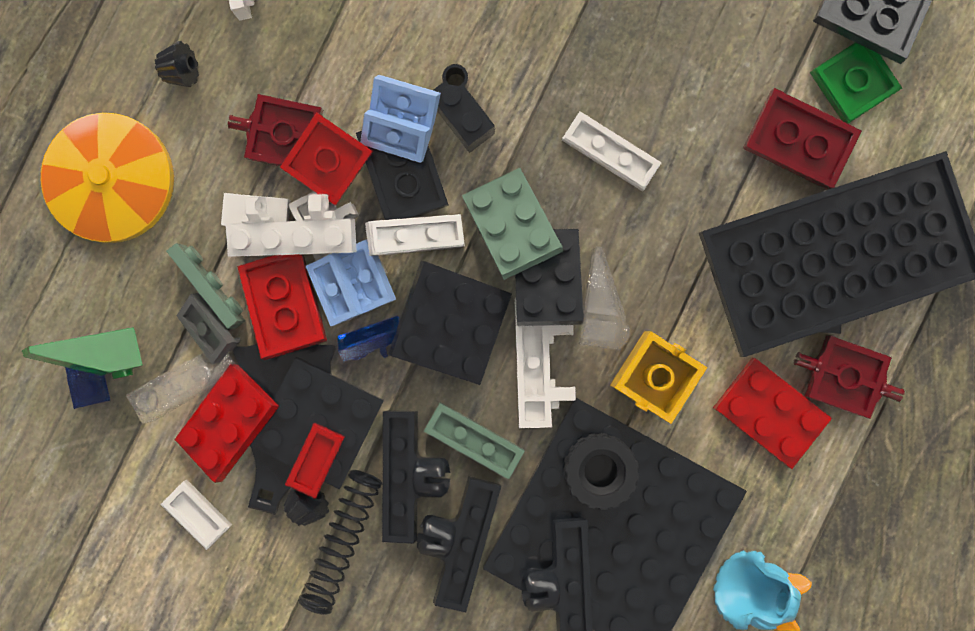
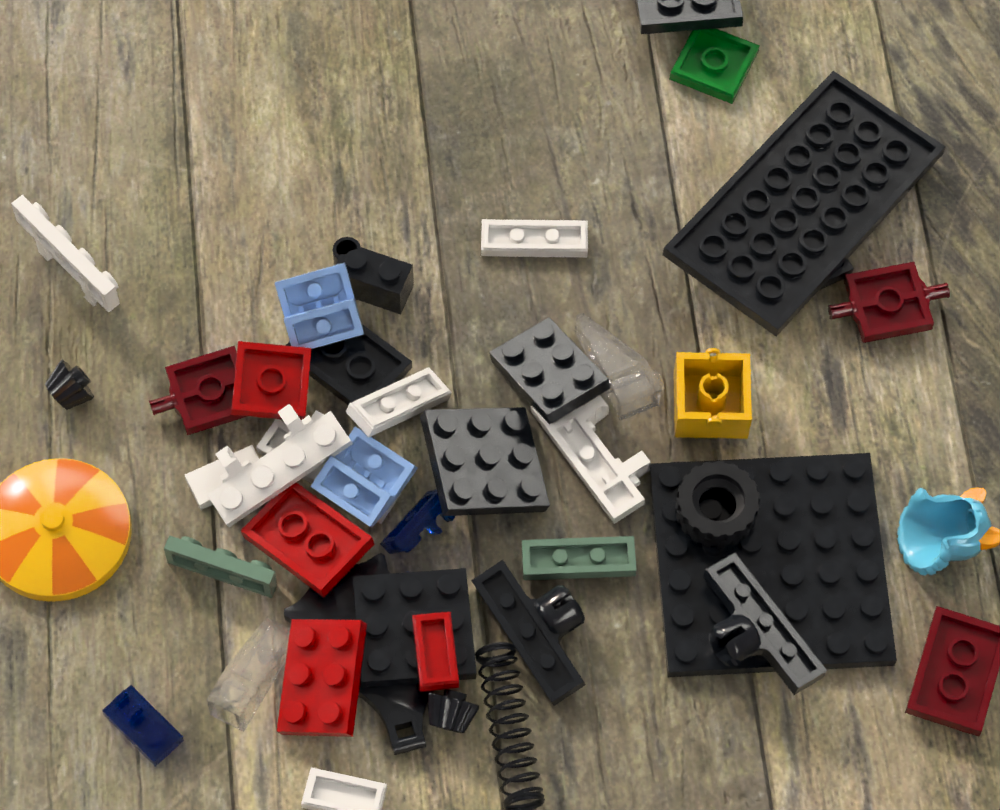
camera: 30 degrees left, 25 degrees down
(97, 353) = (146, 682): slope -> none
(206, 328) = (245, 602): dark grey plate -> none
(460, 542) = (629, 659): black plate -> none
(512, 223) = (484, 343): sand green plate -> none
(772, 413) = (844, 375): red plate -> none
(802, 139) = (700, 132): dark red plate -> none

